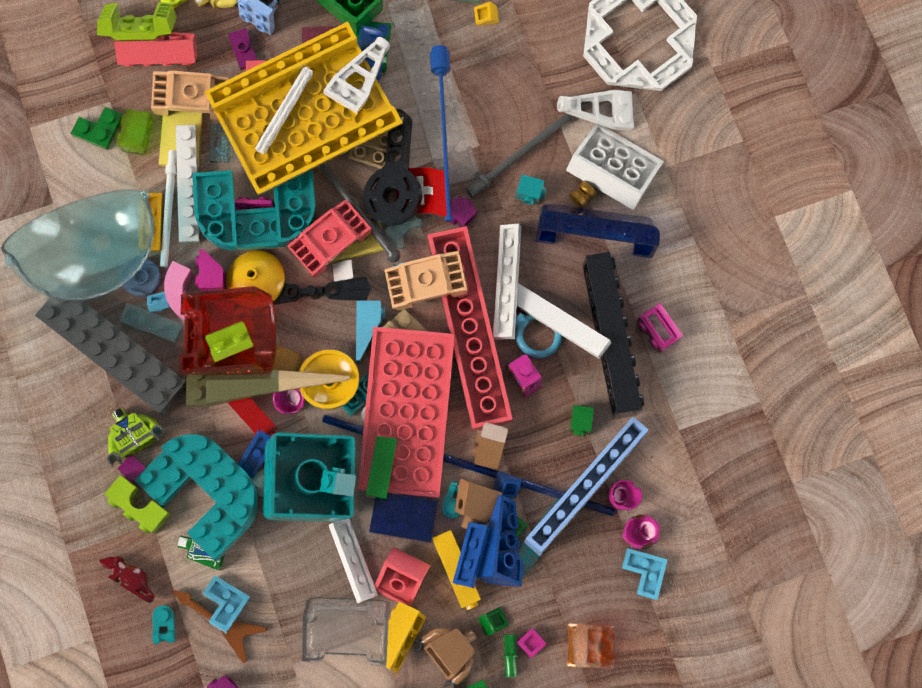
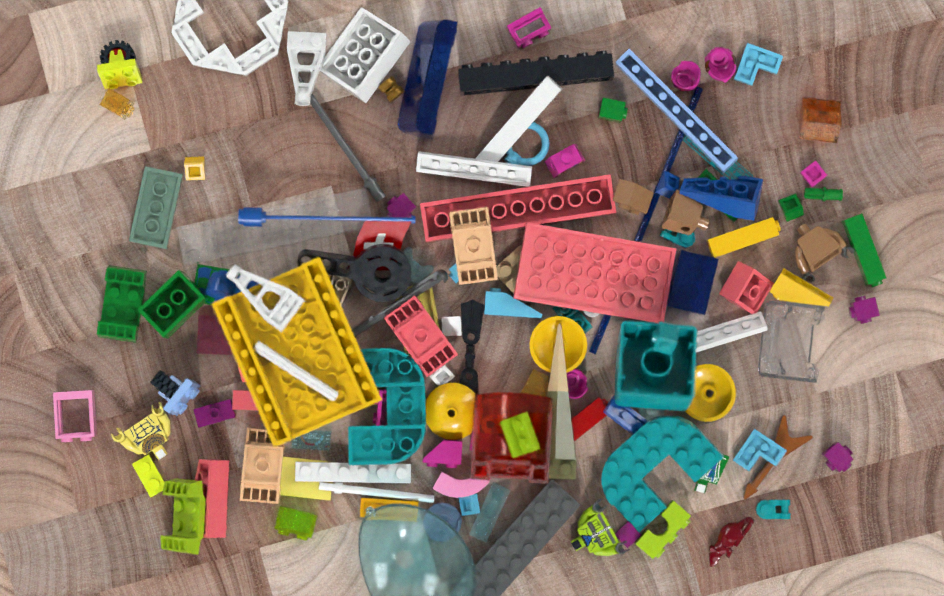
camera: 90 degrees left, 10 degrees up
(98, 133) = (292, 556): green plate -> none
(273, 535) = (723, 398): none -> yellow dish
(292, 266) = (442, 375): none -> white slope
(381, 467) = (647, 299): green tile -> none
(471, 555) = (733, 222): blue plate -> none
(530, 190) = (383, 139): teal brick -> none

